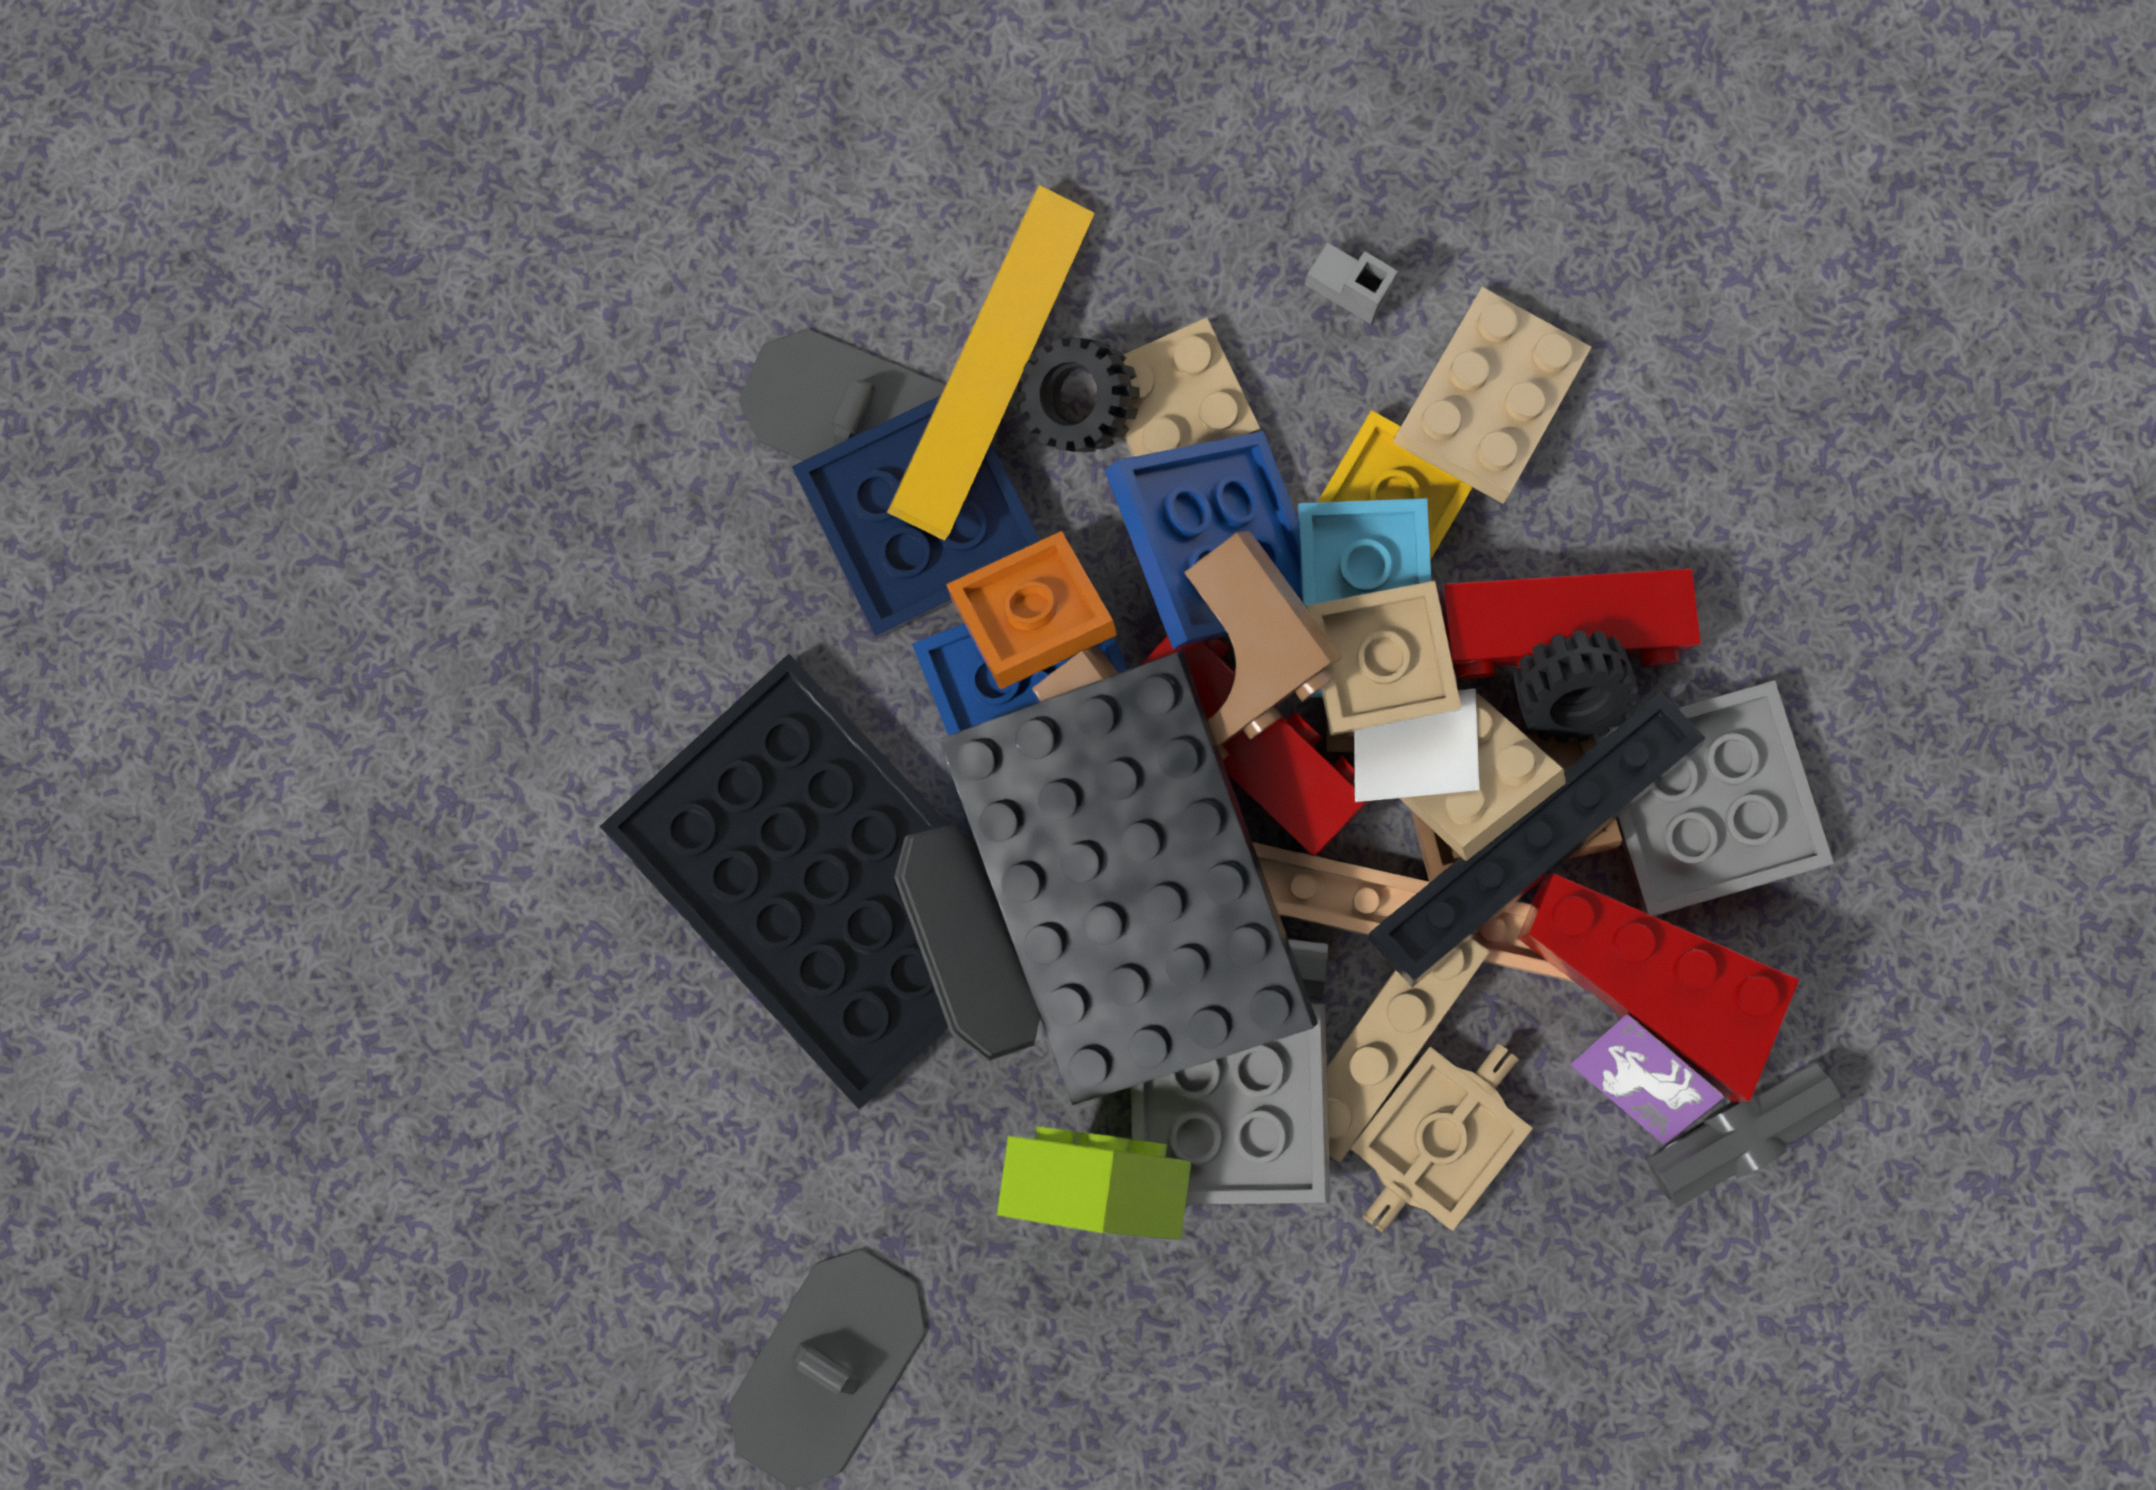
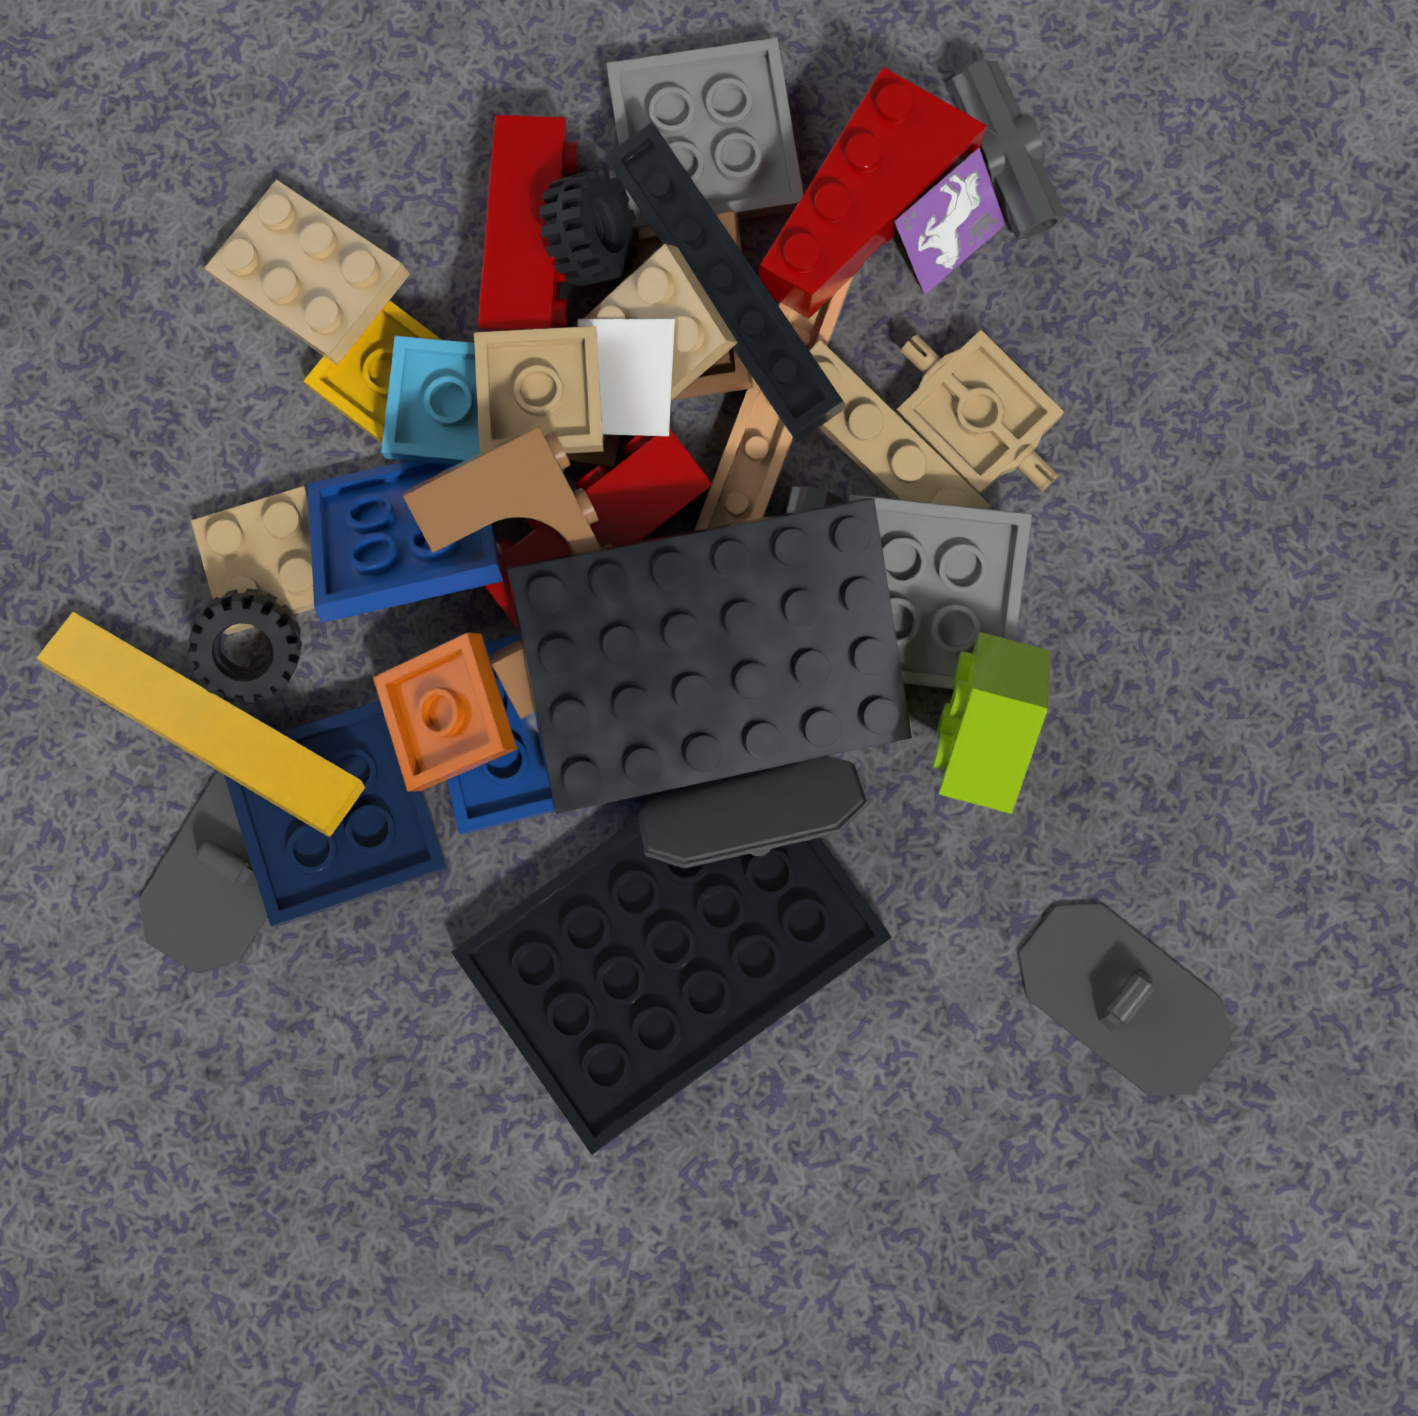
camera: 80 degrees left, 0 degrees up
(1351, 283) = (181, 384): light grey piece -> none

